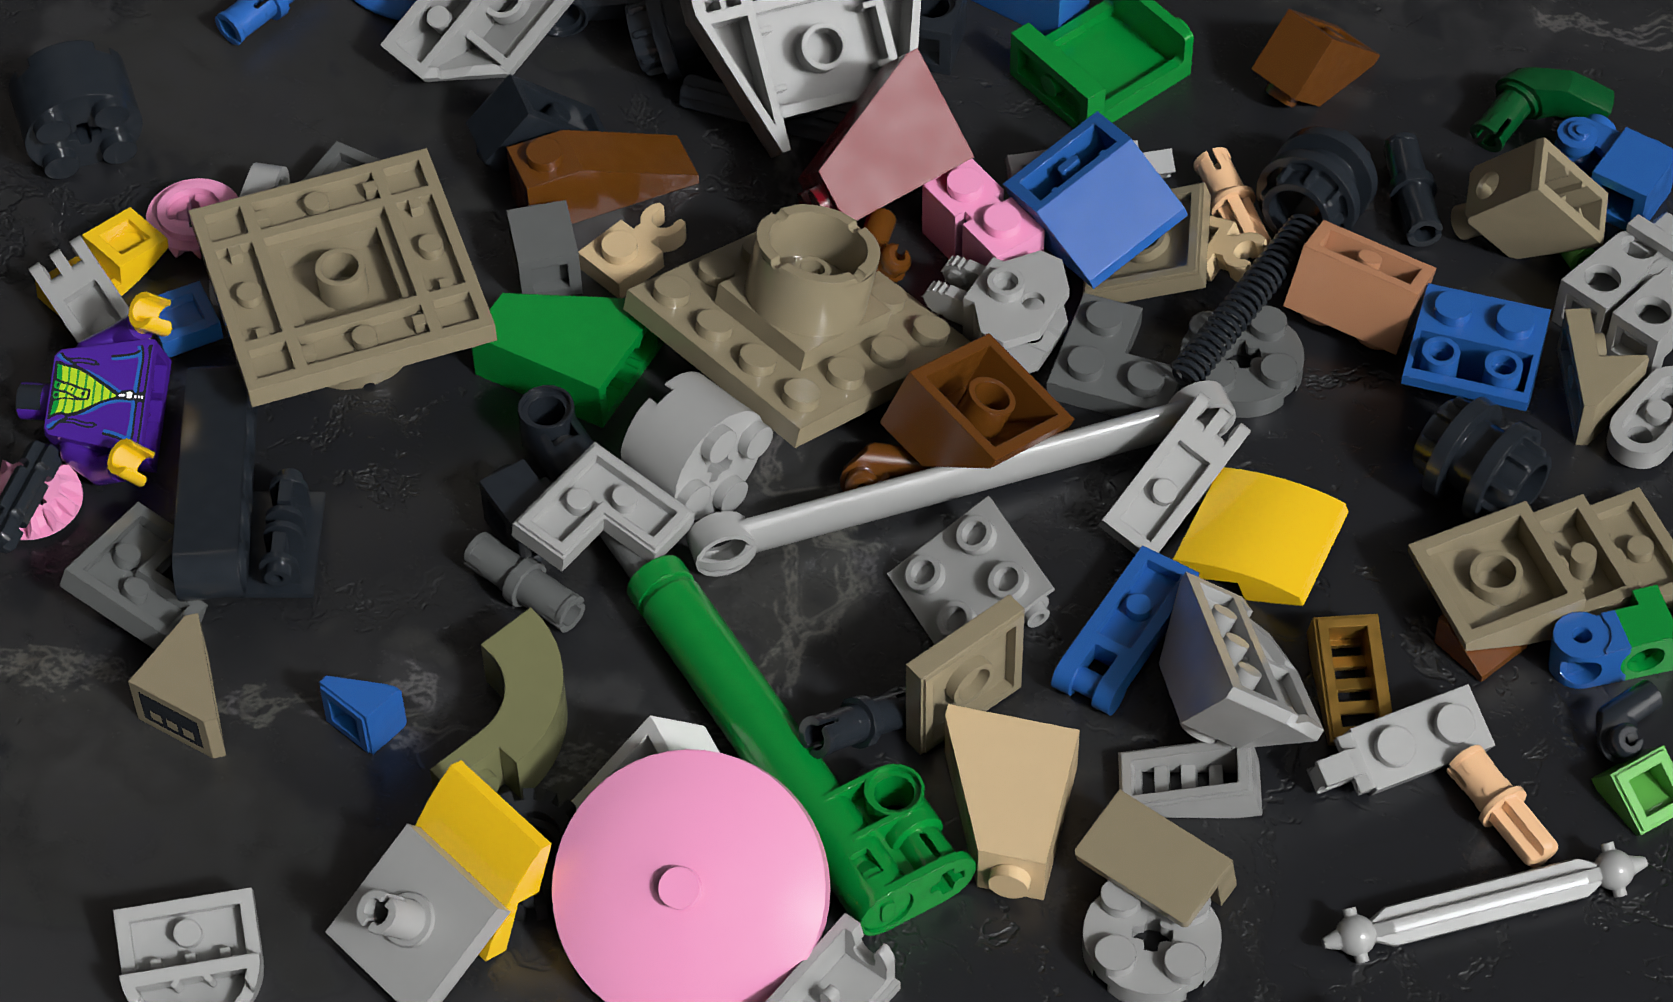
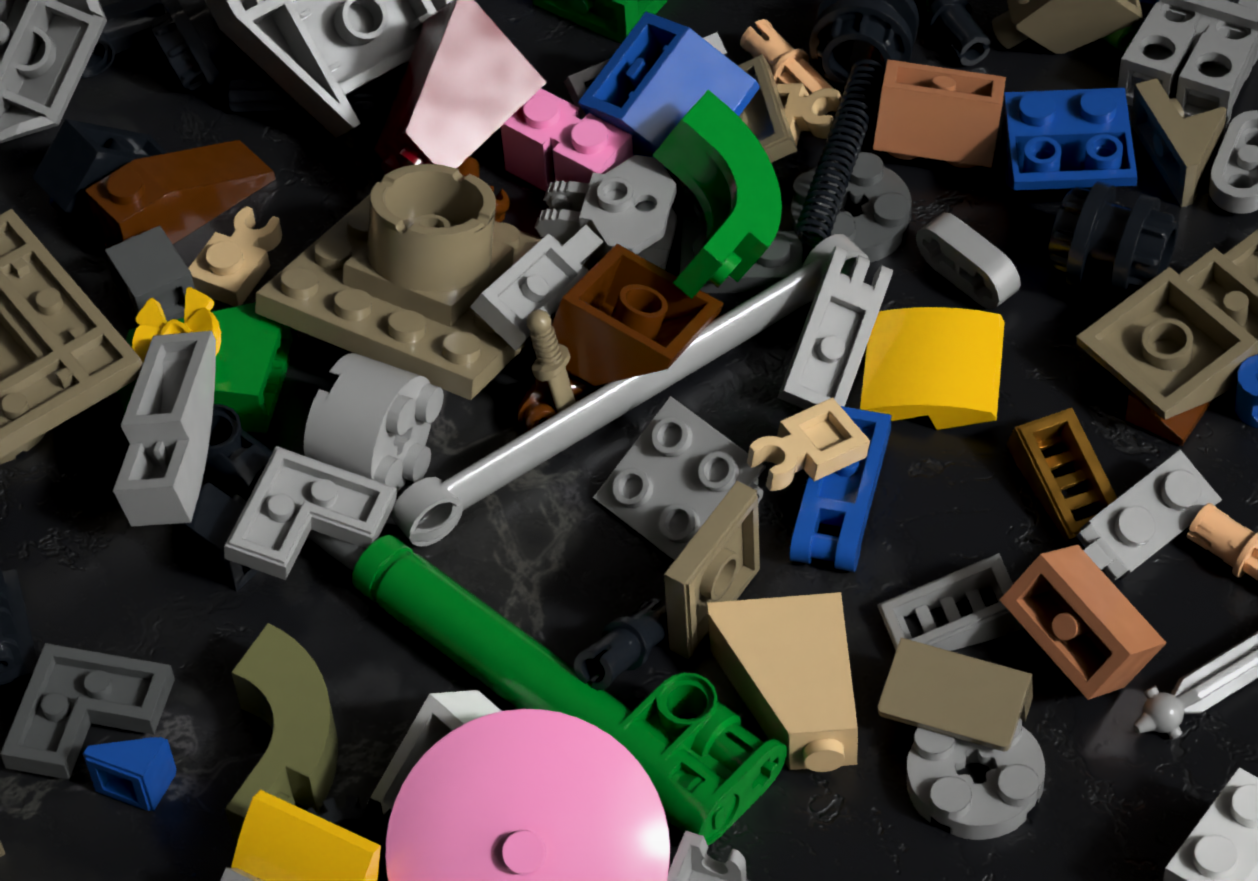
camera: 15 degrees left, 0 degrees up
(338, 622) = (77, 690): none -> dark grey plate
(500, 399) = (168, 430): none -> light grey slope
(524, 582) = (246, 600): dark grey pin -> none
(525, 312) = (196, 319): none -> yellow piece
(882, 357) = (535, 283): none -> light grey hinge
(883, 429) = (550, 359): none -> dark tan piece
(1109, 576) = (811, 440): none -> tan plate
(1123, 305) = (734, 186): none -> green arch
(1231, 673) = (958, 501): light grey wedge -> none
(1303, 824) = (1082, 621): none -> nougat brick
(1335, 441) = (968, 260): none -> light grey beam

